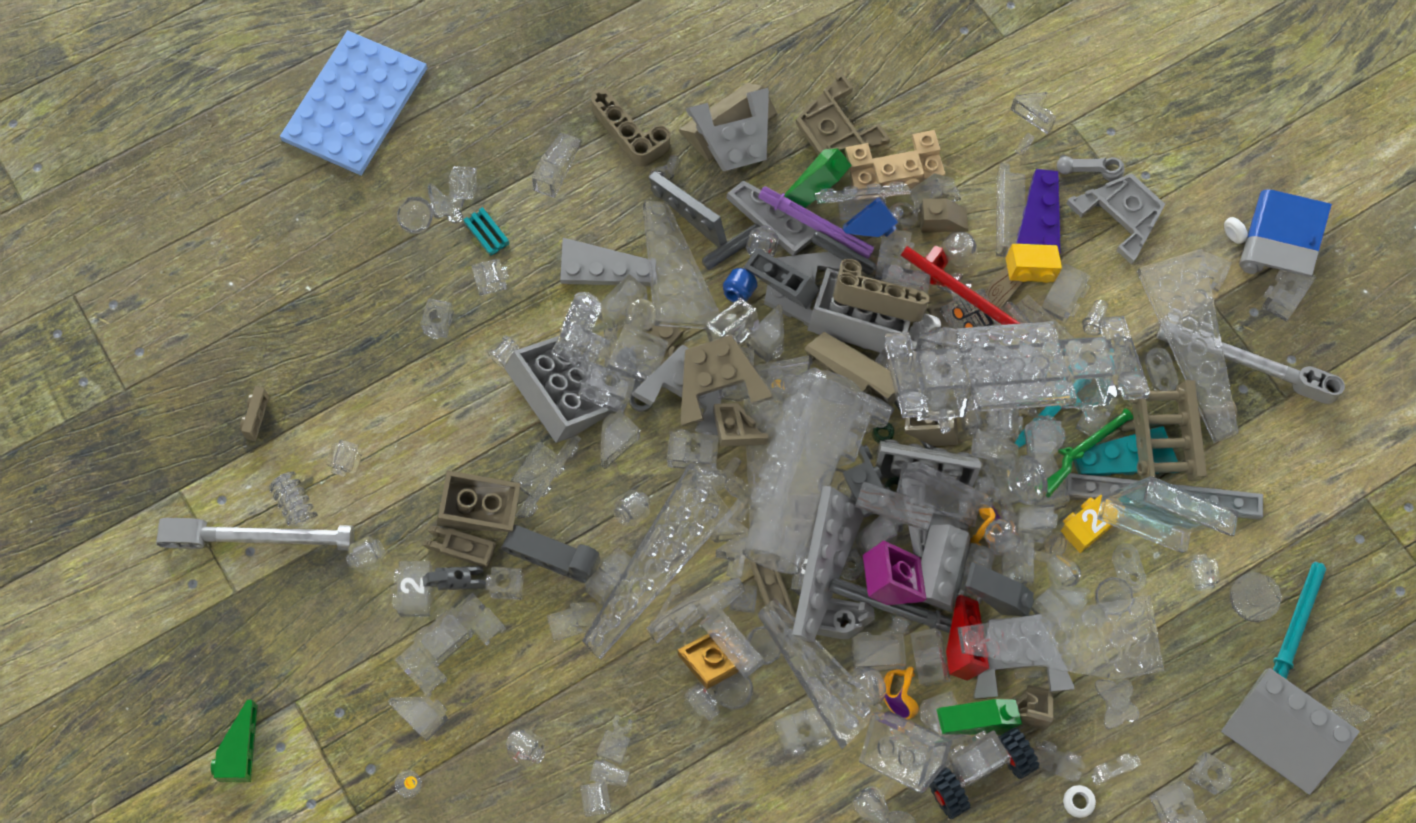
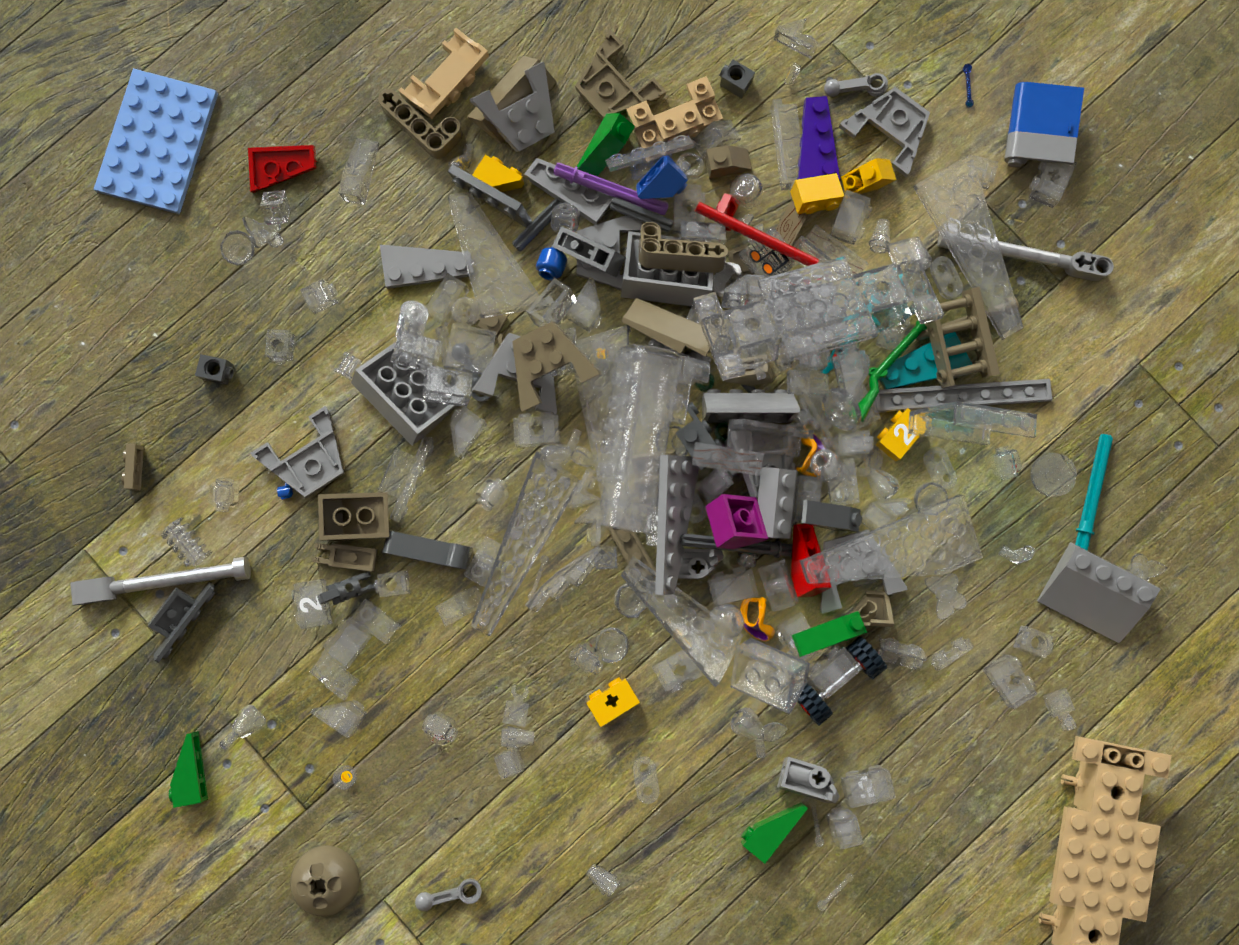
camera: 10 degrees left, 15 degrees up
(262, 574) = (175, 616): none -> dark grey bracket
(315, 702) = (247, 722): none -> clear piece
(359, 322) = (206, 365): none -> dark grey brick
(365, 554) = (263, 581): clear head -> none
(410, 467) = (285, 491): none -> blue hand
(444, 444) = (311, 465): none -> light grey wing
(475, 143) = (278, 164): none -> red wing
(475, 217) = (295, 238): teal tile -> none
(667, 90) = (449, 78): none -> tan bracket
(702, 190) = (497, 175): none -> yellow slope
(707, 661) = (588, 620): pearl gold tile -> none
(715, 764) = (605, 713): none -> yellow brick
(732, 643) = (603, 606): clear plate -> none
(736, 427) = (572, 403): dark tan wing -> none
(964, 147) = (740, 86): none -> dark grey brick
(1087, 794) = (933, 685): white piece -> none
(1093, 255) = (869, 176): none -> yellow slope
(1138, 340) = (922, 253): none -> clear cone
(1205, 677) = (1018, 556): none -> clear arm
(1210, 170) = (966, 69): none -> clear blue hinge
(1235, 230) = (997, 127): white piece -> none

